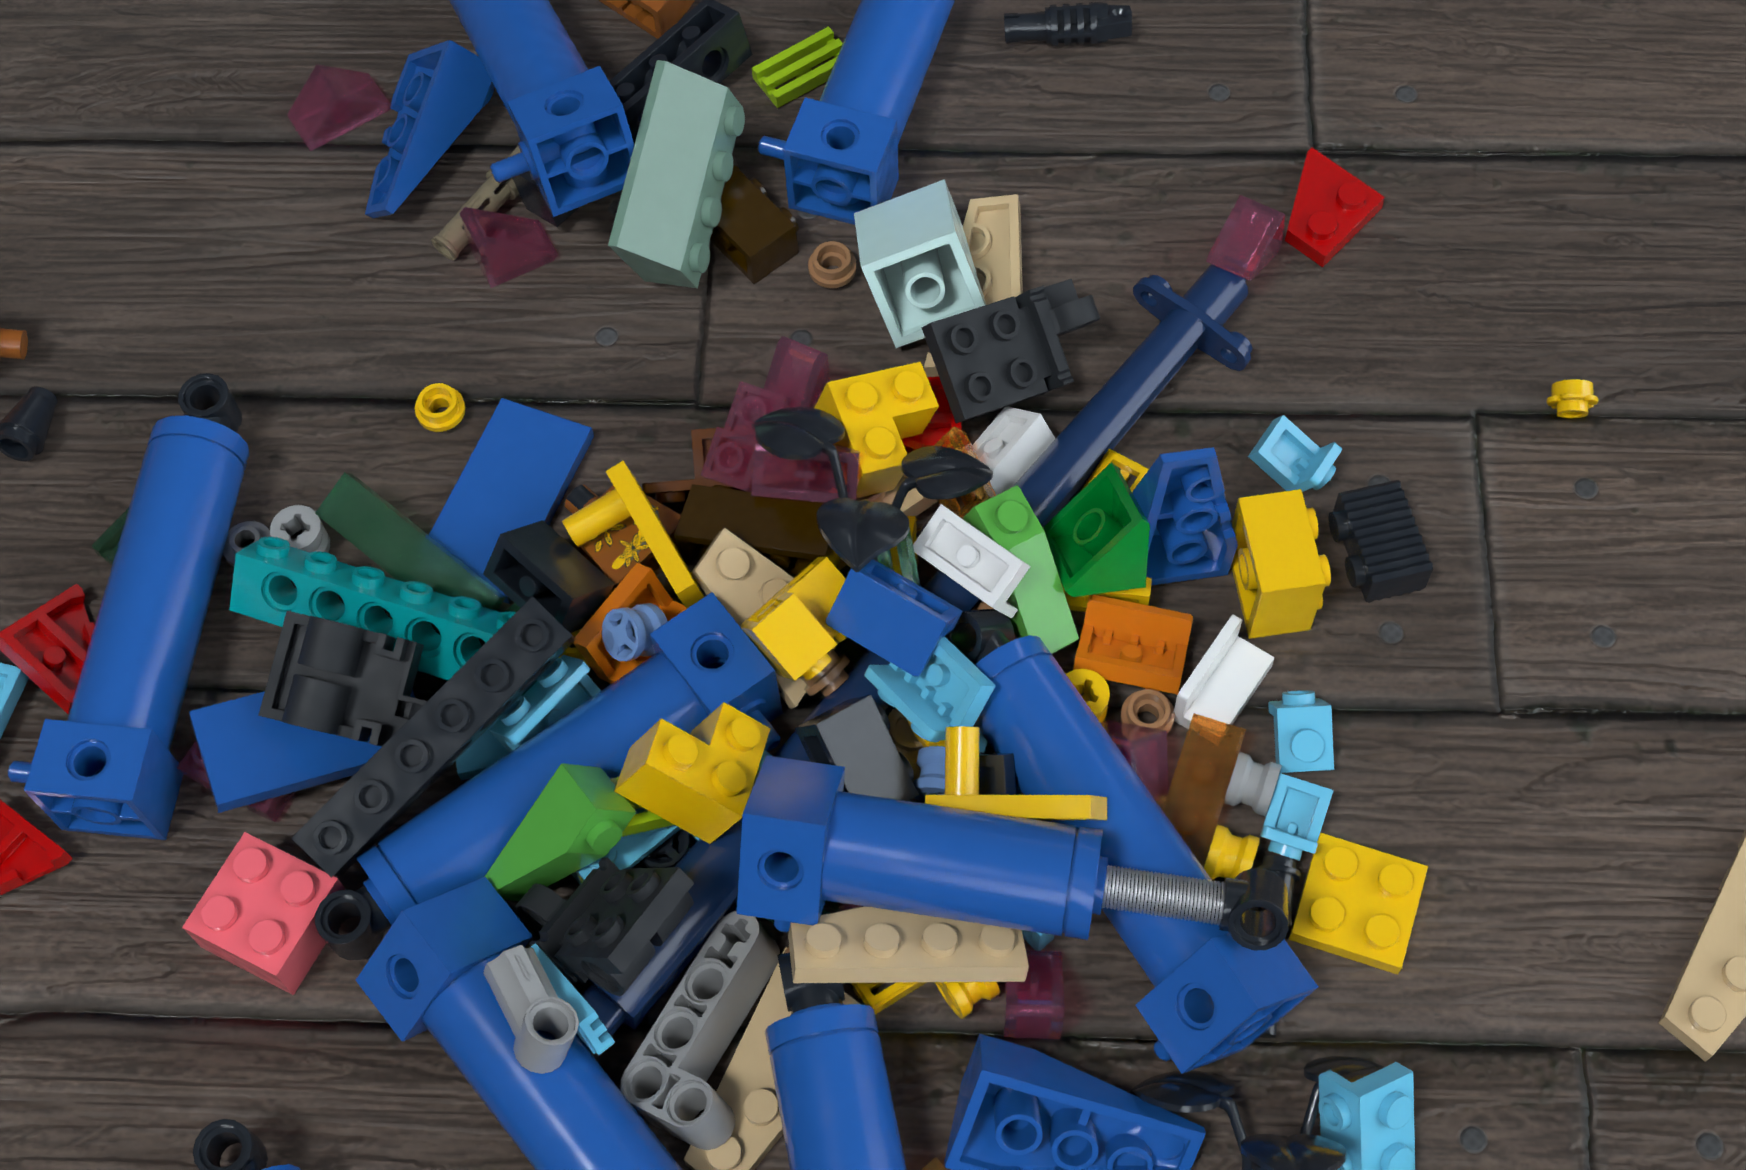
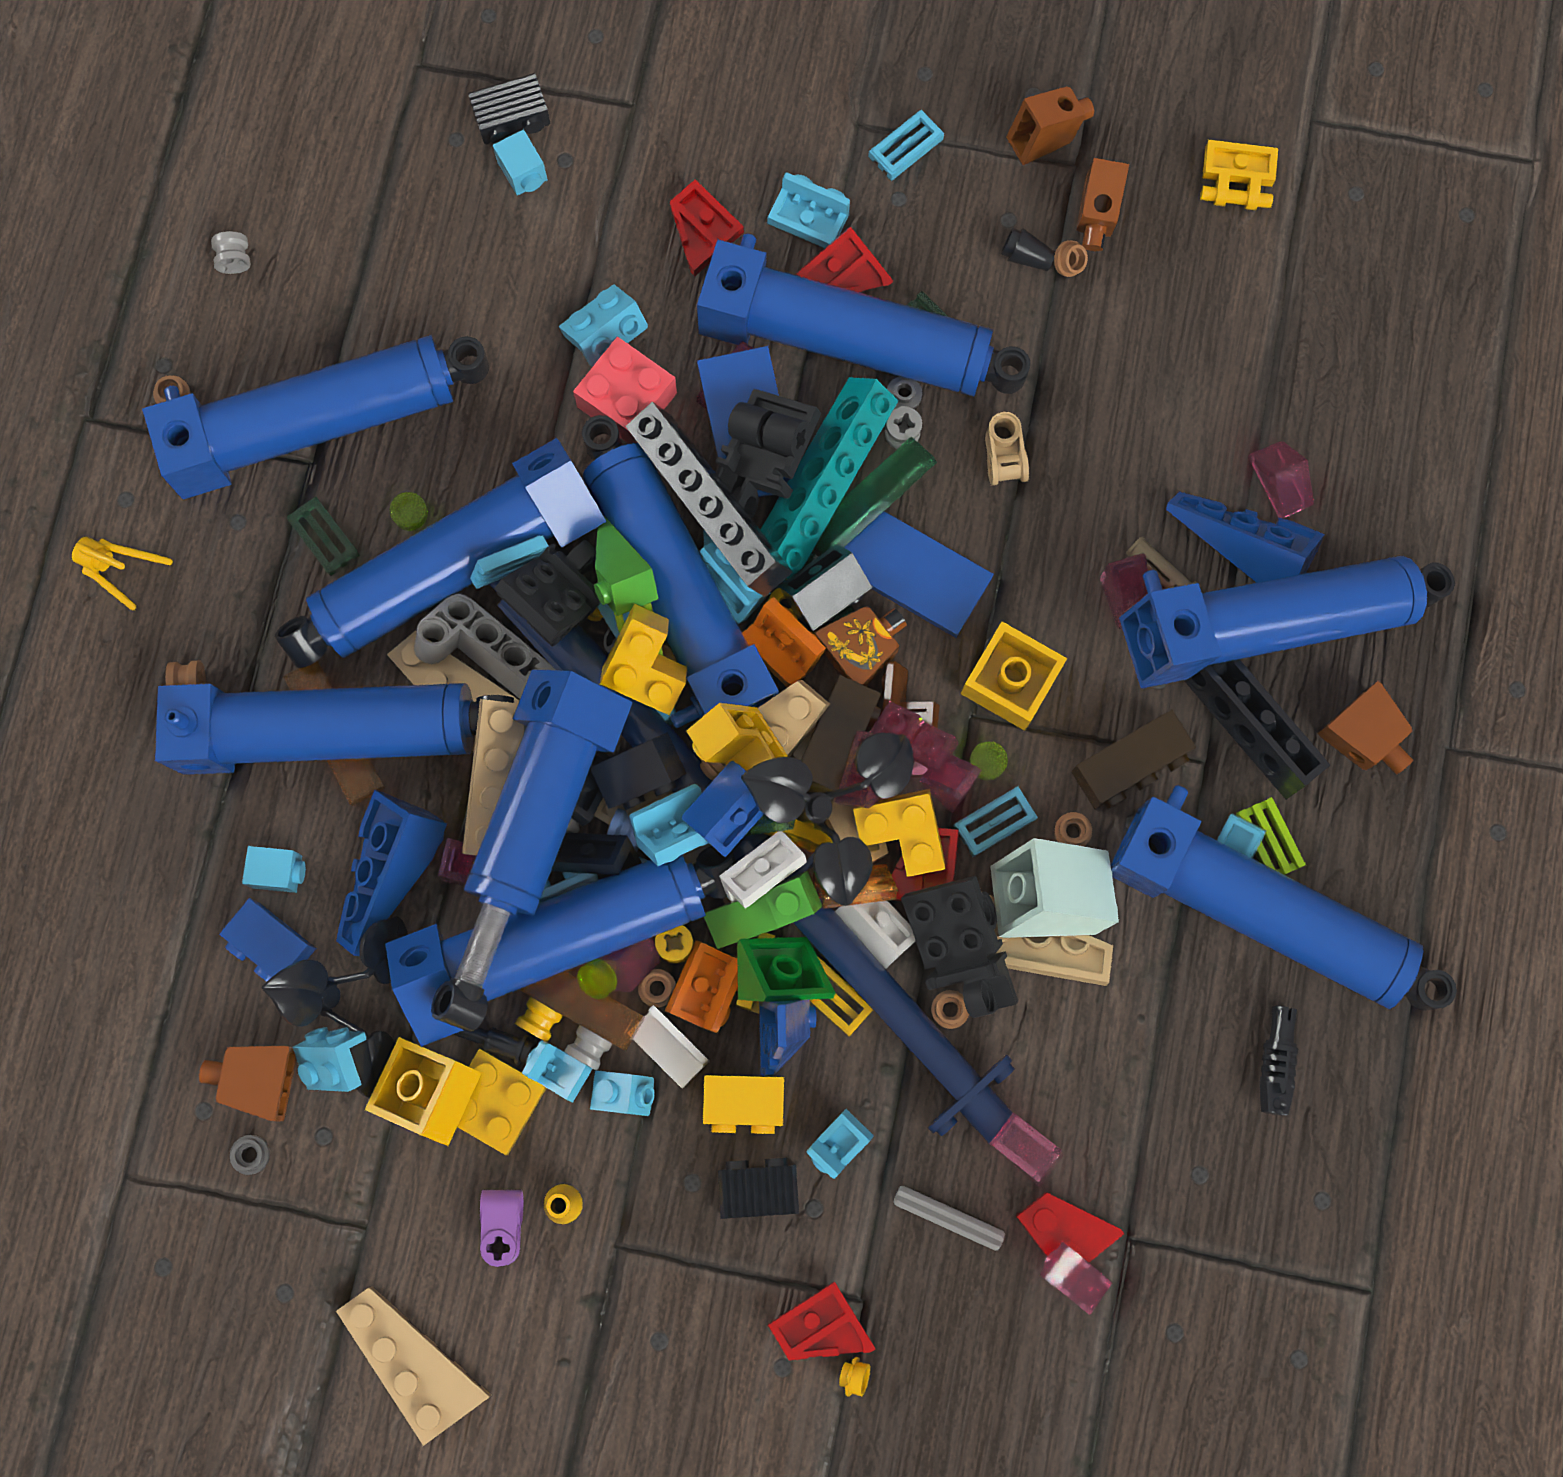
camera: 95 degrees right, 15 degrees up
(39, 370) = (1070, 258): none -> medium nougat plate
(156, 972) = (601, 321): none -> medium azure bracket
(325, 407) = (1006, 457): none -> tan piece
(438, 396) = (998, 521): yellow plate -> none
(532, 1006) = (500, 534): light grey piece -> none
(628, 501) = (867, 650): yellow piece -> none
(628, 631) = (770, 639): medium blue wheel -> none
(641, 346) = (1013, 676): none -> yellow brick
(676, 177) = (1142, 713): slope -> none
(752, 366) = (990, 759): none -> clear neon green tile
(804, 82) = (1241, 835): none -> medium azure tile
(843, 335) = (968, 838): none -> medium azure tile
(963, 788) = (573, 857): yellow piece -> none
(1092, 354) = (938, 1014): none -> medium nougat plate
(1162, 773) = (597, 979): none -> clear neon green tile
(1347, 330) = (949, 1218): none -> light grey axle
(1378, 982) = (423, 1091): none -> yellow brick
(1379, 181) = (1075, 1278): none -> clear pink slope
(1472, 777) = (573, 1203): none -> yellow cone
(1518, 852) = (501, 1217): none -> medium lavender piece
(1525, 445) = (821, 1327): none -> red wing

